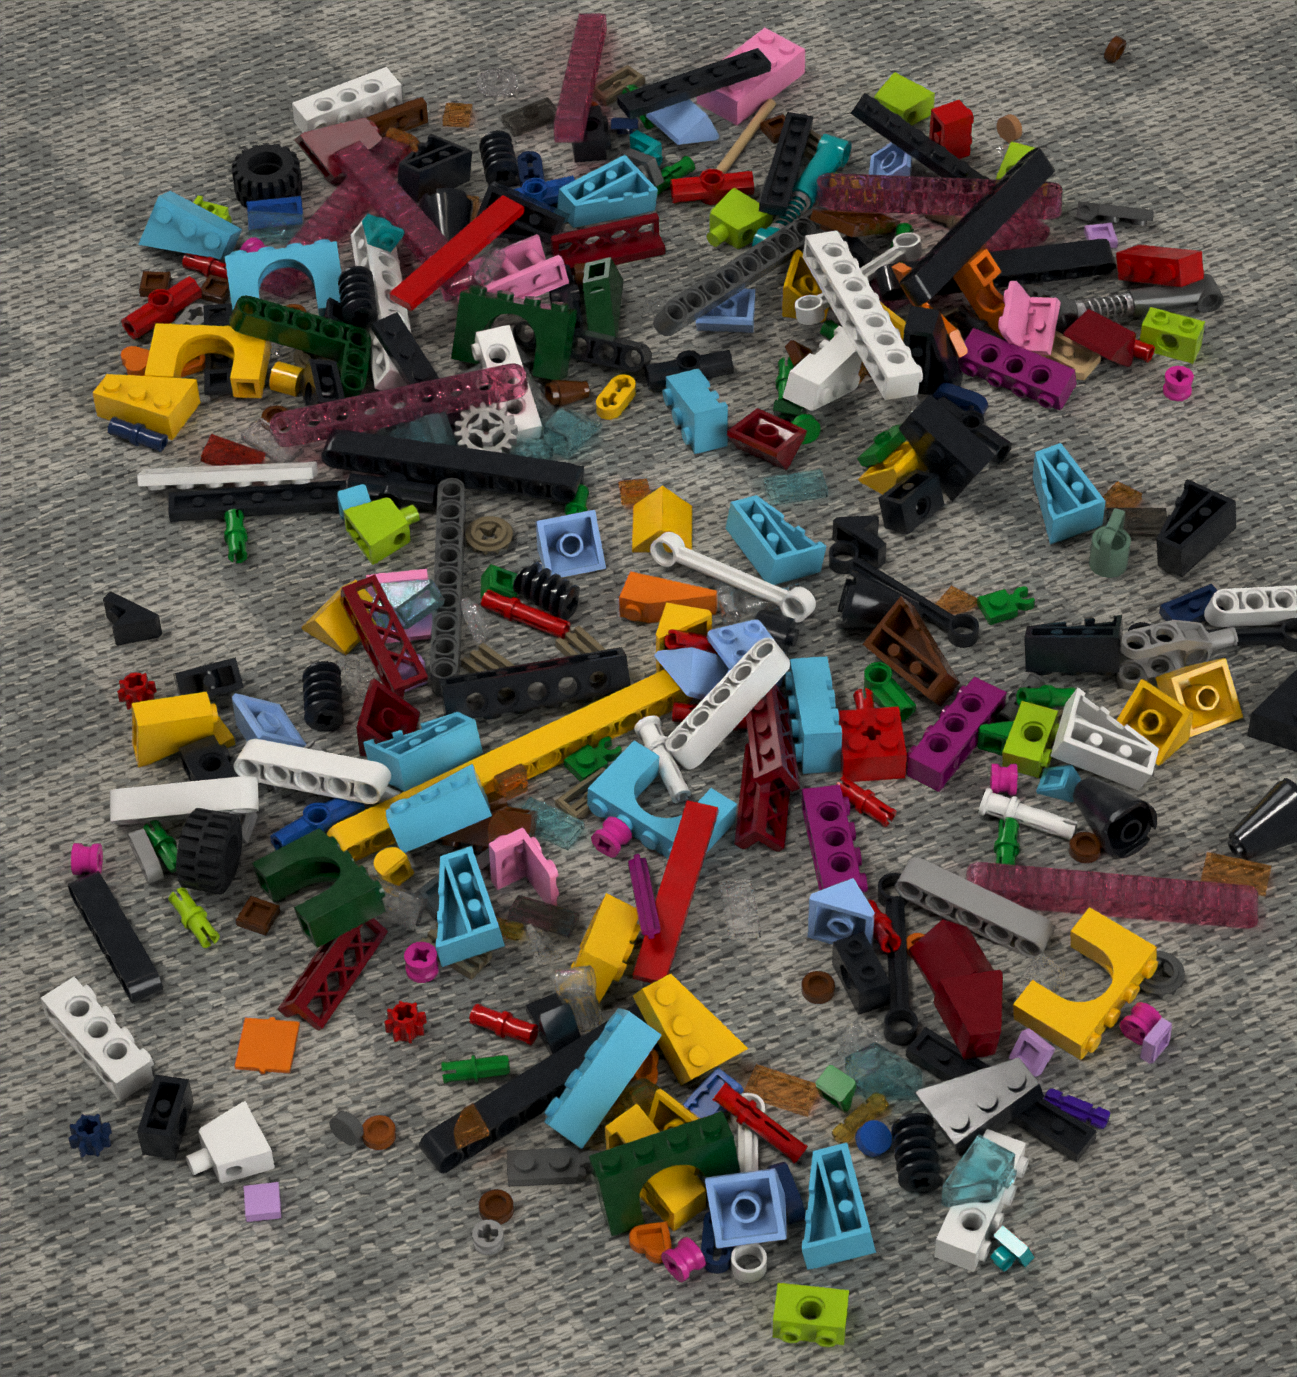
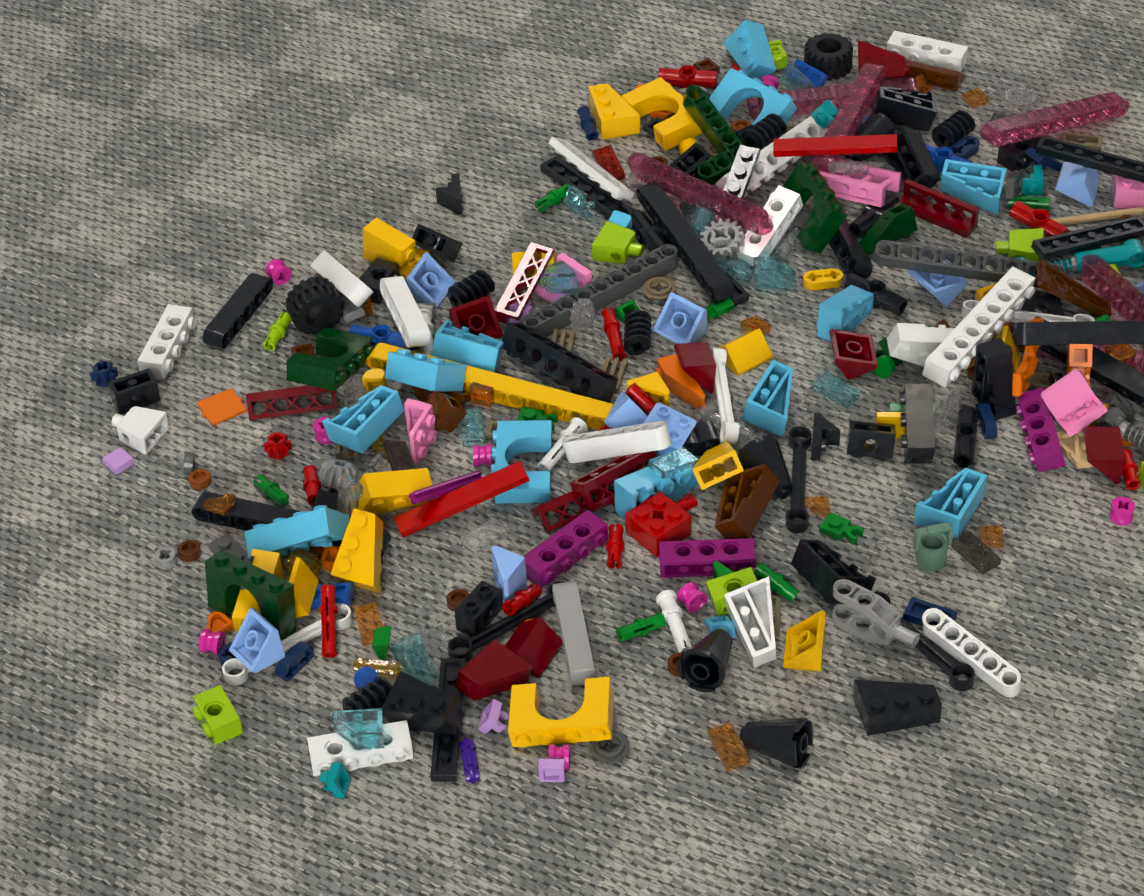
camera: 55 degrees right, 5 degrees down
(136, 689) = (406, 223): red gear -> none
(267, 518) = (576, 201): none -> clear light blue plate
(520, 986) = (332, 469): none -> light grey gear
(566, 392) = (800, 256): reddish brown cone -> none
(670, 562) = (698, 363): none -> dark red slope
(811, 673) = (672, 462): none -> clear light blue plate
(835, 1212) = (296, 687): medium azure wedge -> none
(844, 637) = (717, 465): none -> yellow slope
(886, 690) = (707, 511): green piece -> none
(1120, 894) = (651, 696): clear pink beam -> none
(1194, 528) = (991, 579): black wedge -> none
(1206, 691) = (852, 653): yellow slope -> none

